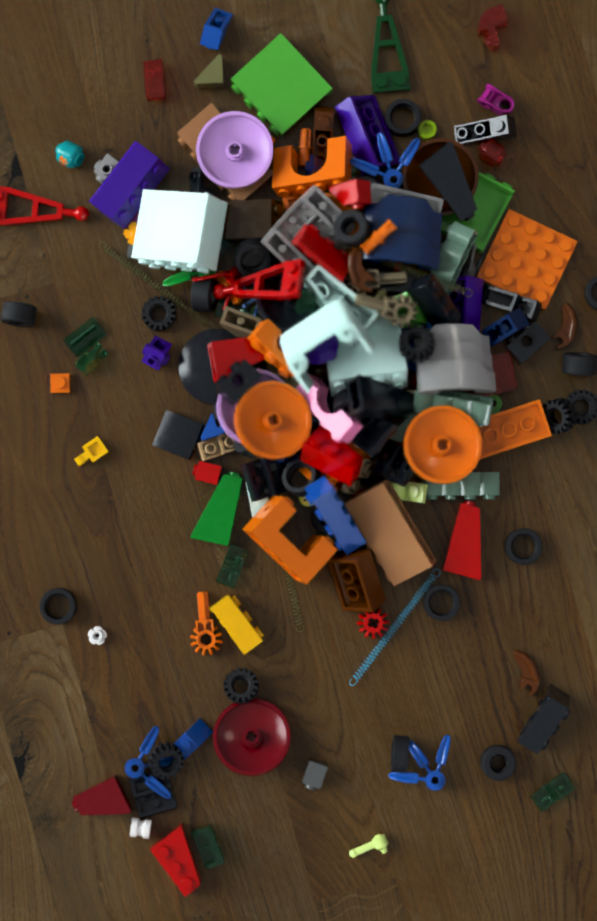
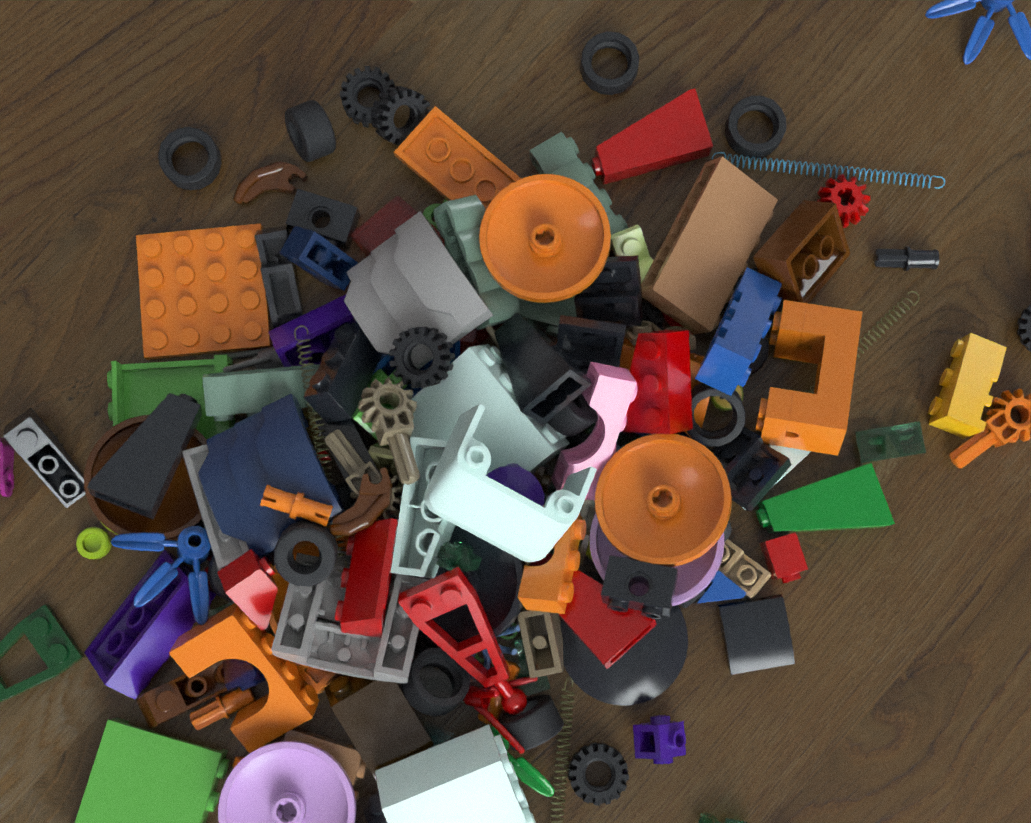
camera: 125 degrees left, 5 degrees down
(93, 450) = (858, 746): yellow plate -> none
(322, 637) = (906, 258): none -> black axle
(400, 753) = (997, 57): black tyre -> none
(403, 103) = (70, 582): black tyre -> none
(492, 153) = (74, 428): clear red head -> none

